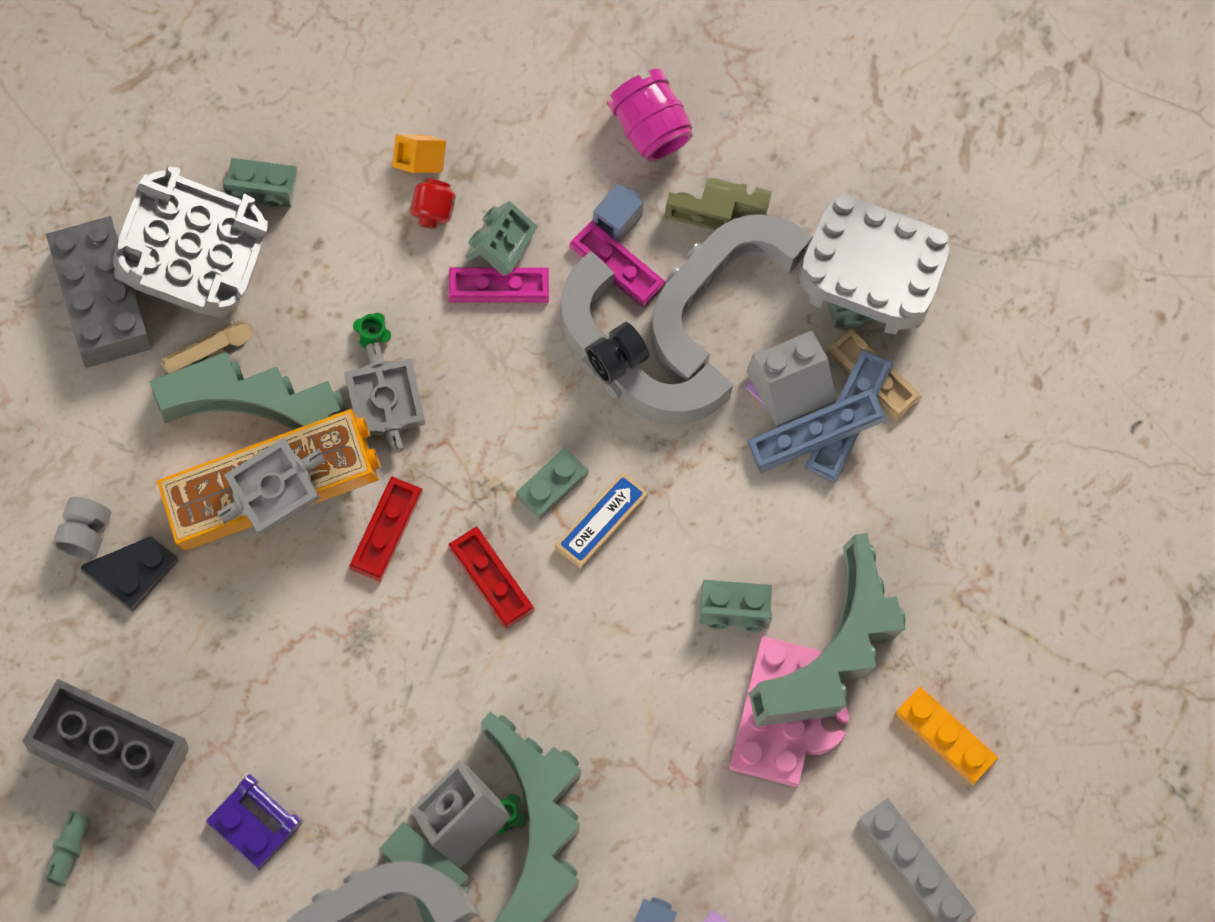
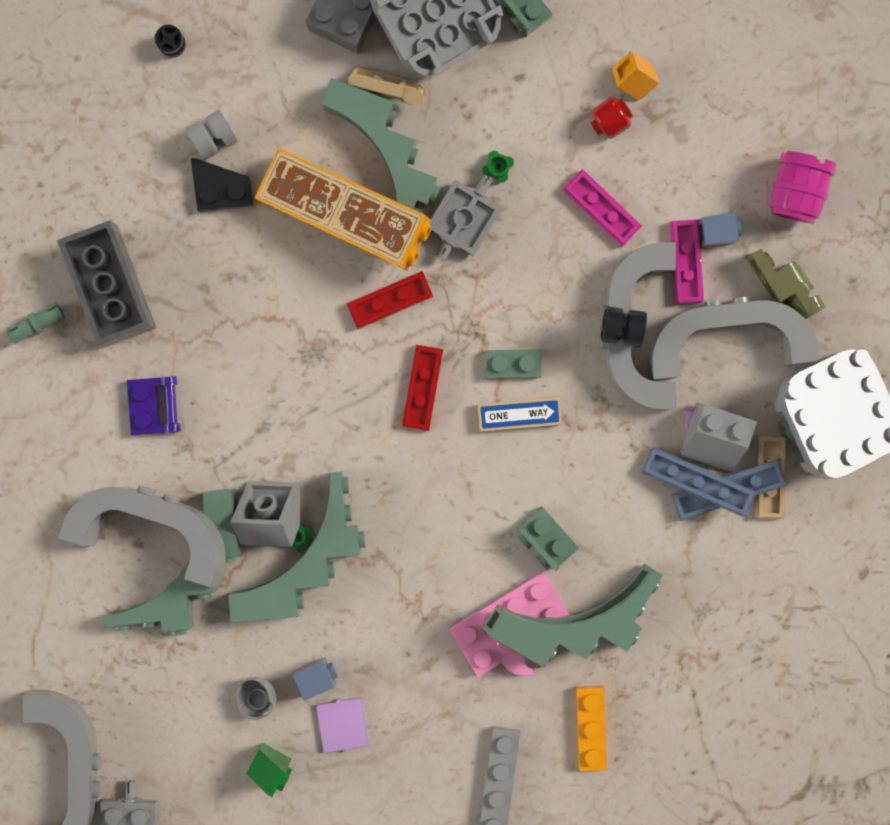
camera: 50 degrees right, 20 degrees up
(272, 486) = (335, 220): light grey plate -> none
(502, 237) = (631, 180): sand green bracket -> none

